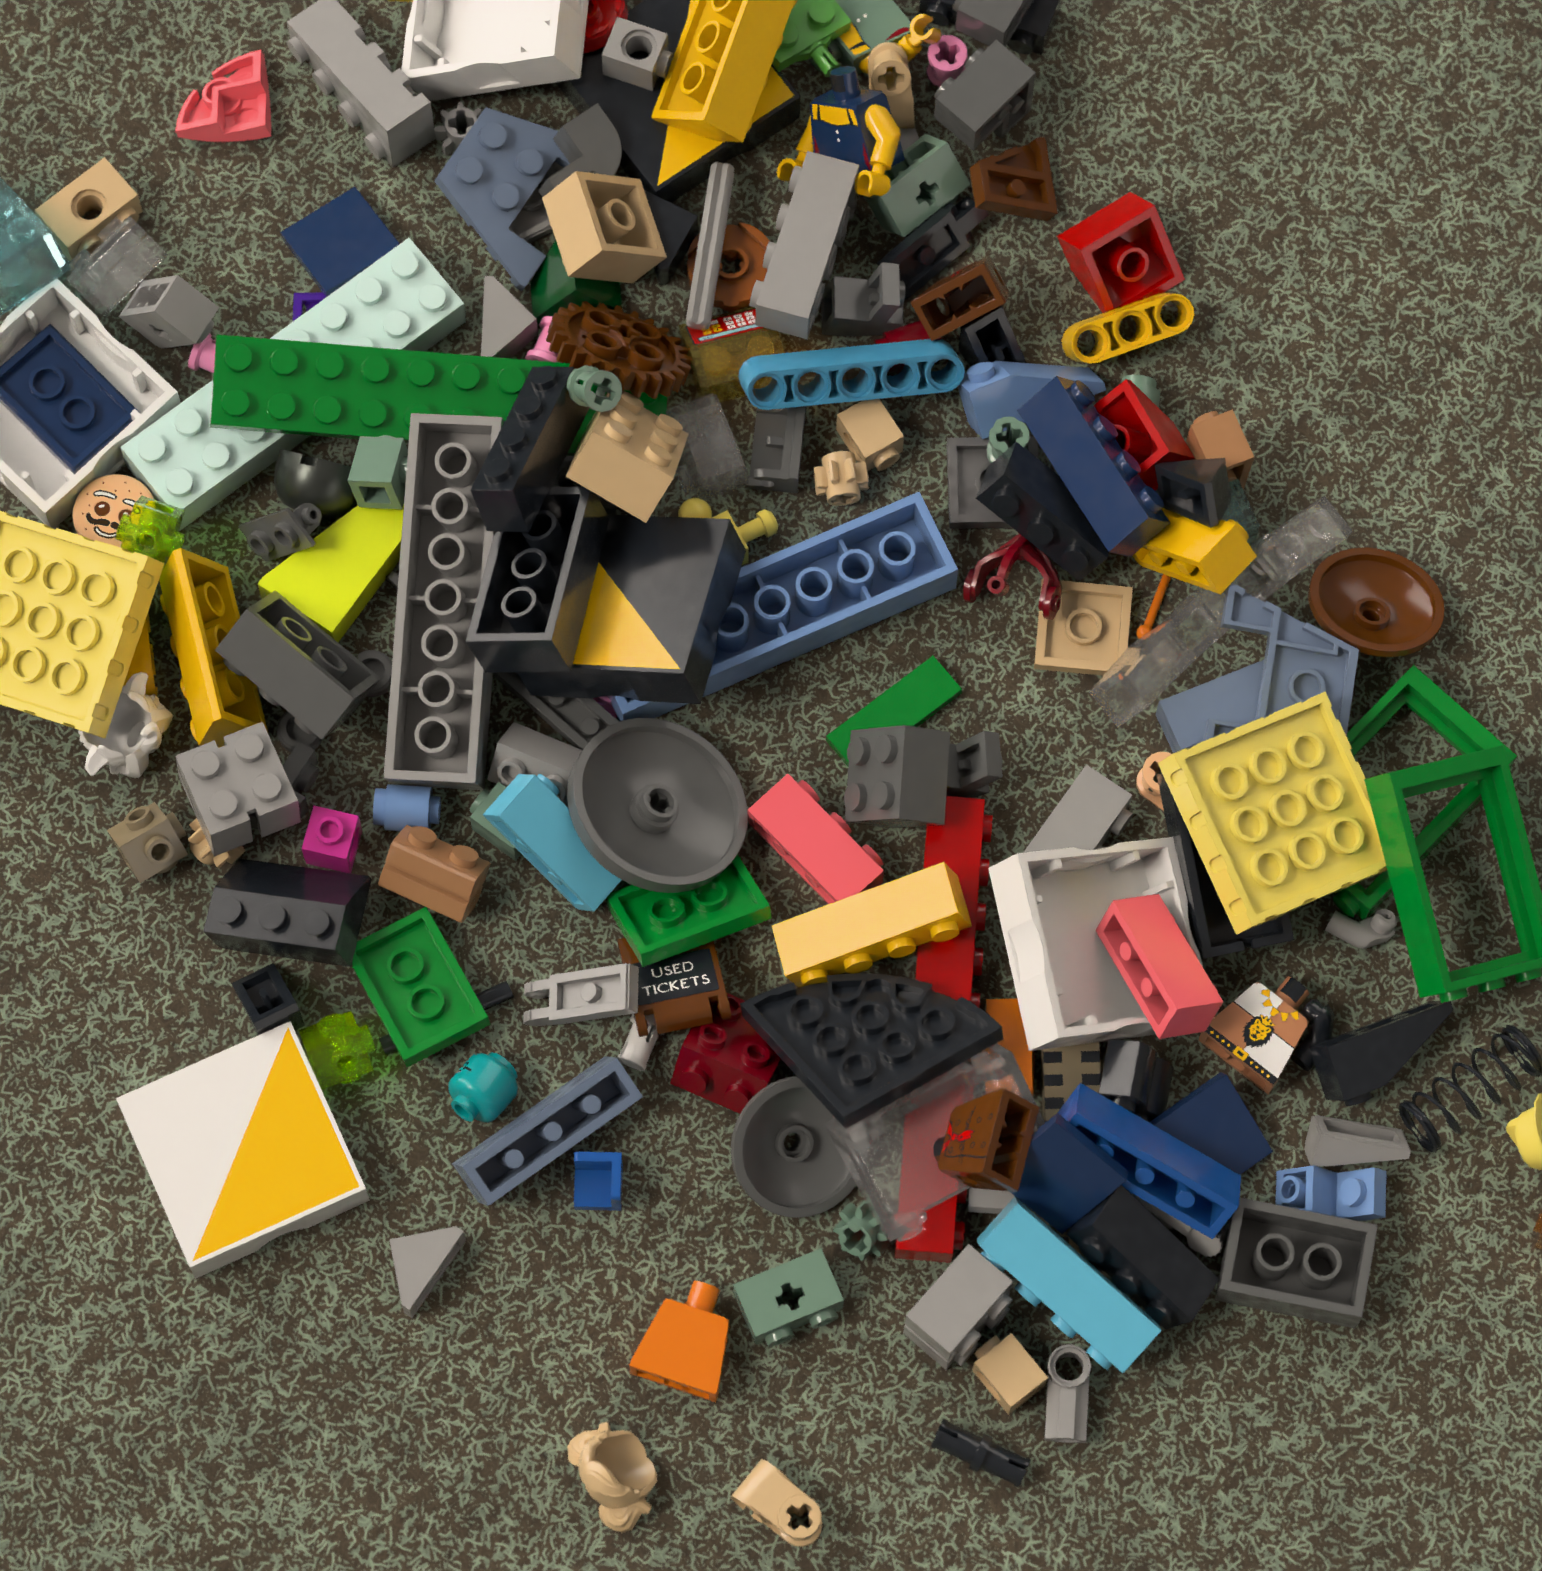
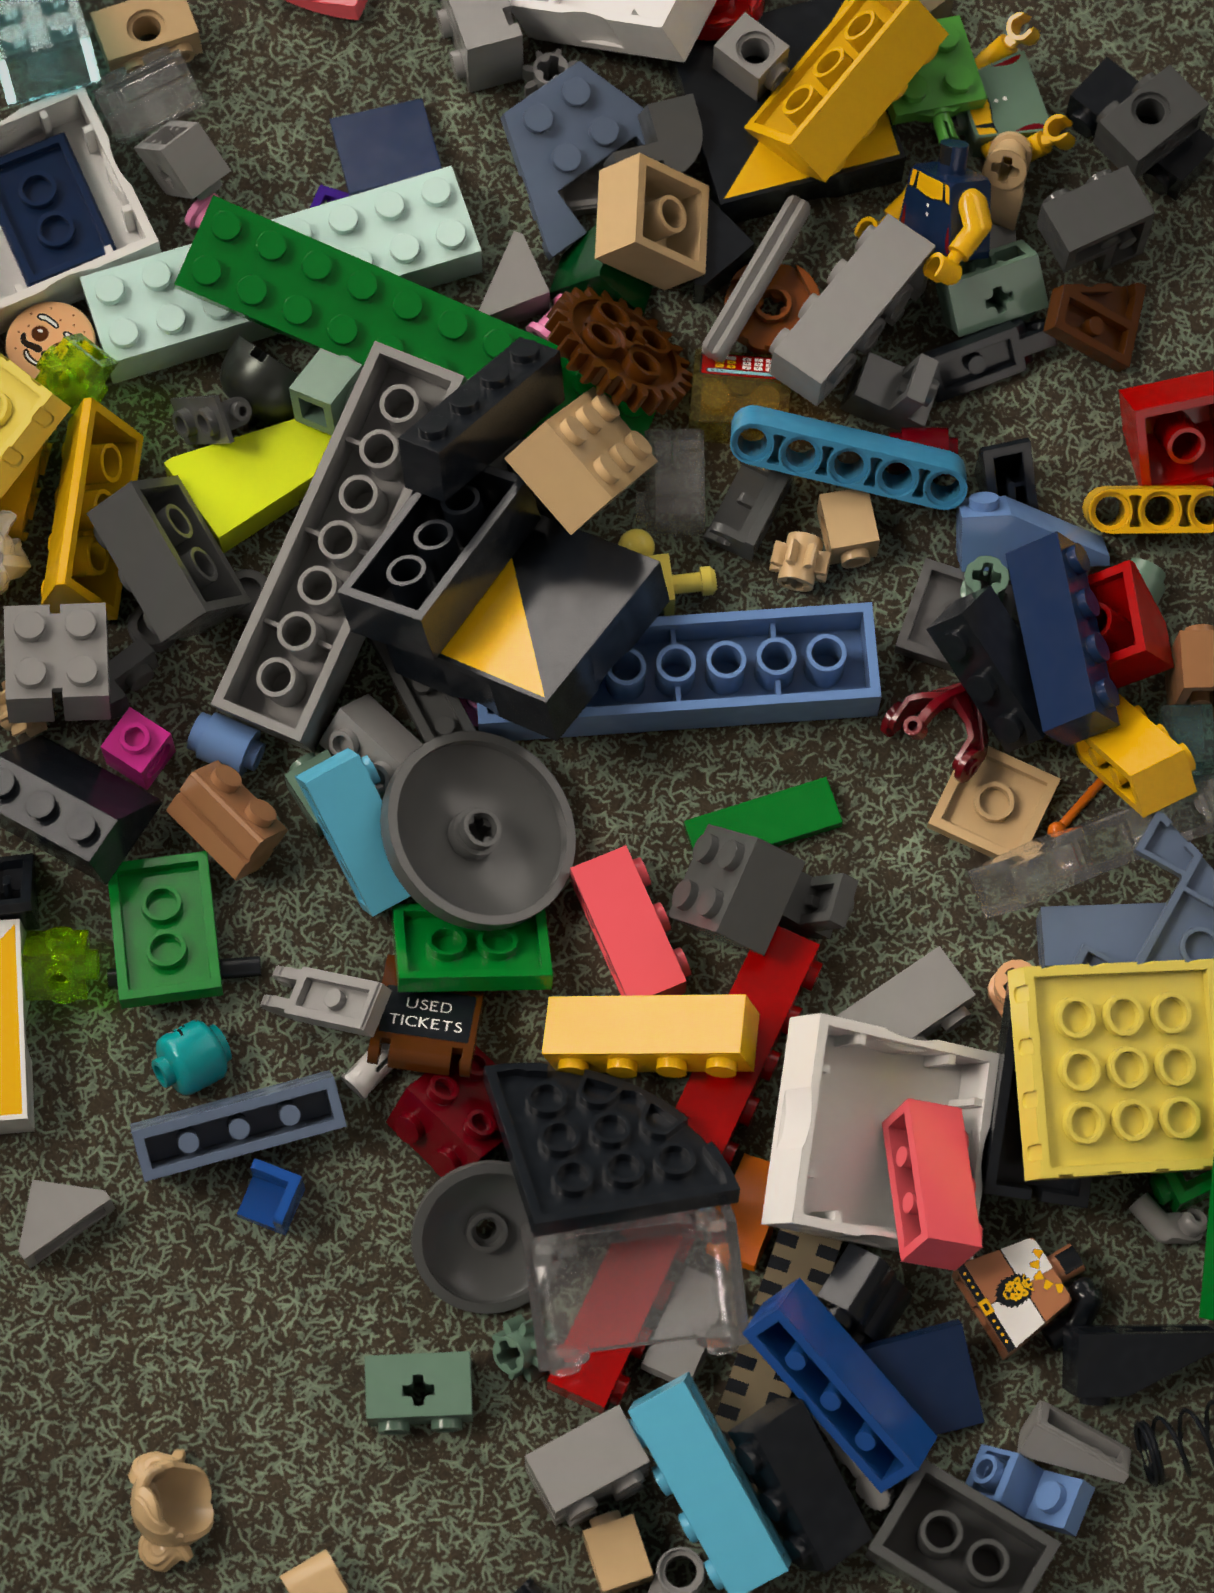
camera: 20 degrees right, 0 degrees up
(585, 397) = (570, 394): sand green bush -> none
(685, 1344) = (294, 1400): orange torso -> none
(951, 50) = (1076, 159): bright pink bush -> none
(964, 295) = (998, 418): reddish brown torso -> none
(988, 1141) = (678, 1304): reddish brown torso -> none
(1066, 1174) = (741, 1365): dark blue tile -> none
(1195, 489) = (1159, 699): black slope -> none

